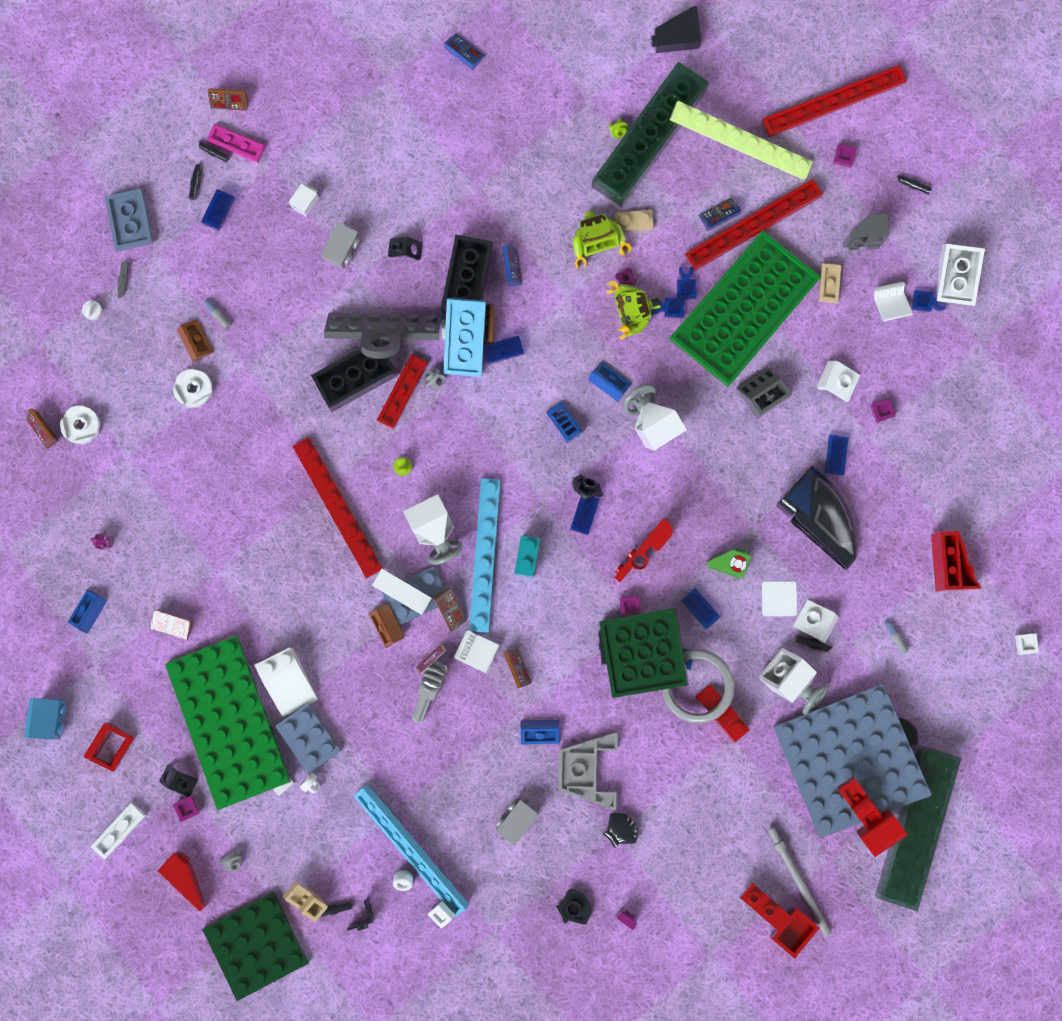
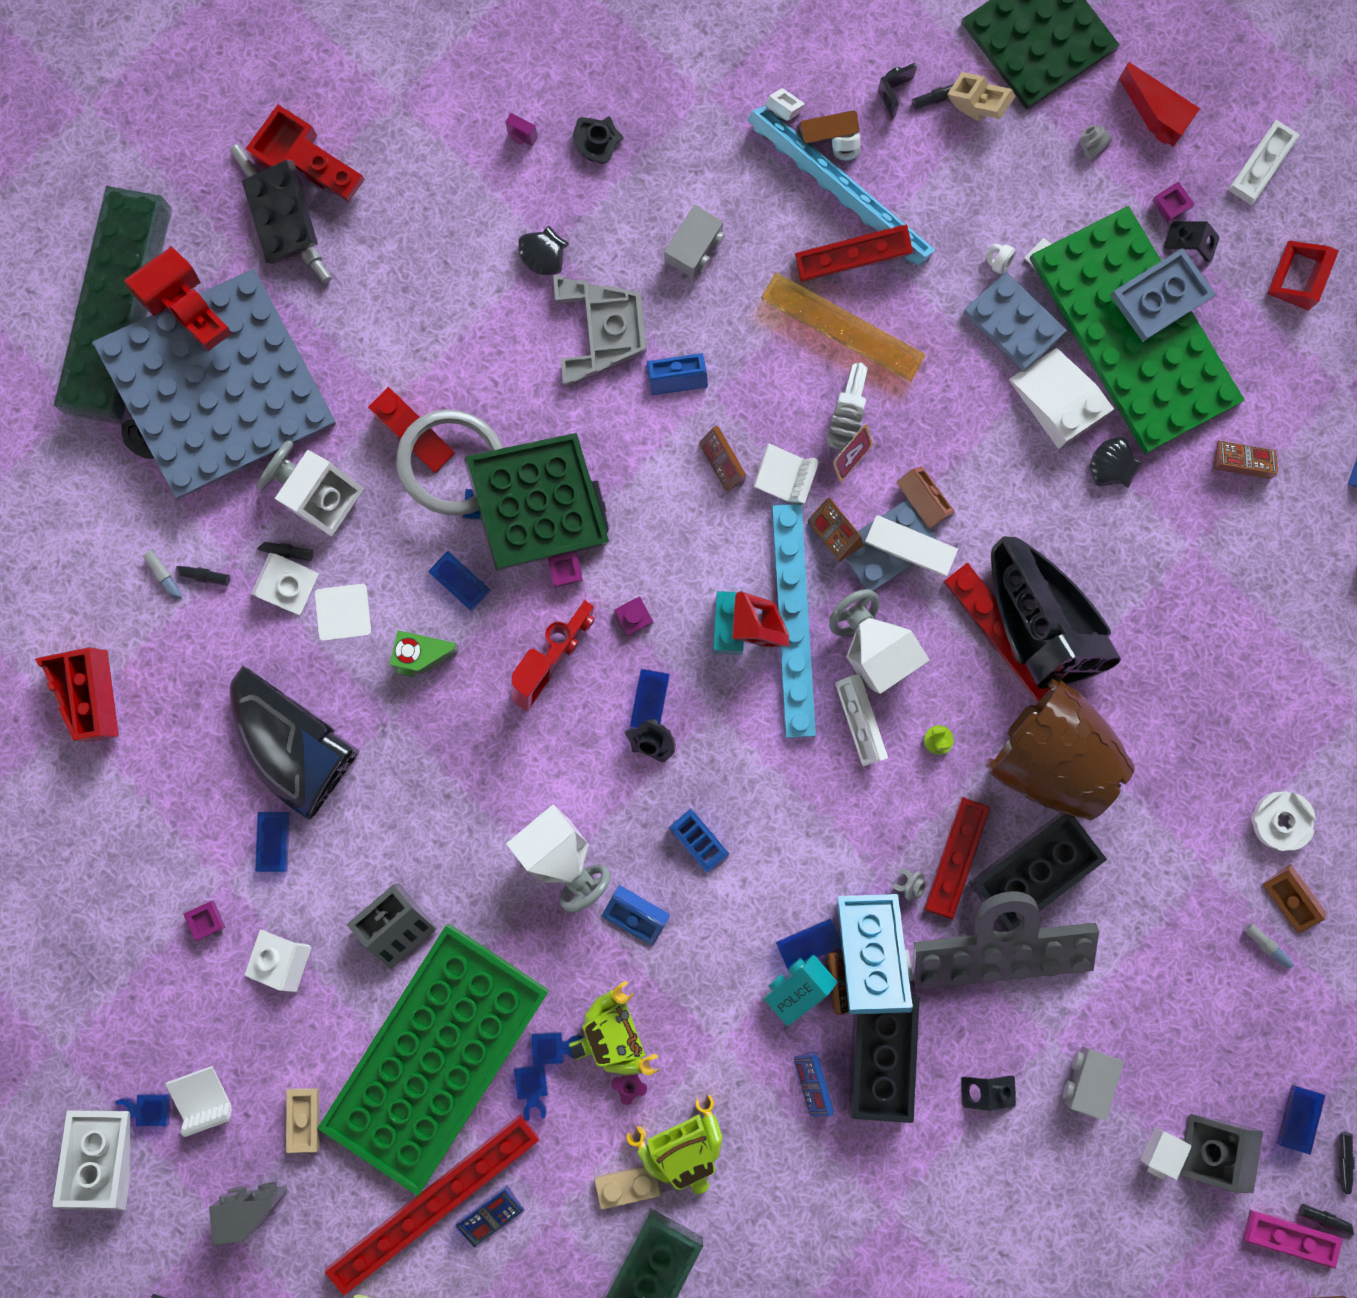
camera: 175 degrees right, 0 degrees up
(207, 740) = (1162, 294): none -> sand blue plate
(258, 632) = (1114, 463): none -> black animal
(269, 195) = (1222, 1153): none -> dark grey slope
(320, 534) = (1048, 617): none -> black panel
(328, 441) = (1063, 755): none -> reddish brown piece
(409, 798) = (854, 253): none -> red tile
(413, 893) = (829, 126): none -> dark orange slope
(424, 749) = (843, 327): none -> clear yellow plate
(450, 484) = (861, 719): none -> white tile
(513, 321) = (800, 989): none -> teal brick
(517, 552) = (748, 627): none -> red tile
(588, 571) = (633, 616): none -> magenta plate
(799, 879) = (279, 212): none -> black plate
(869, 634) = (204, 575): none -> black piece

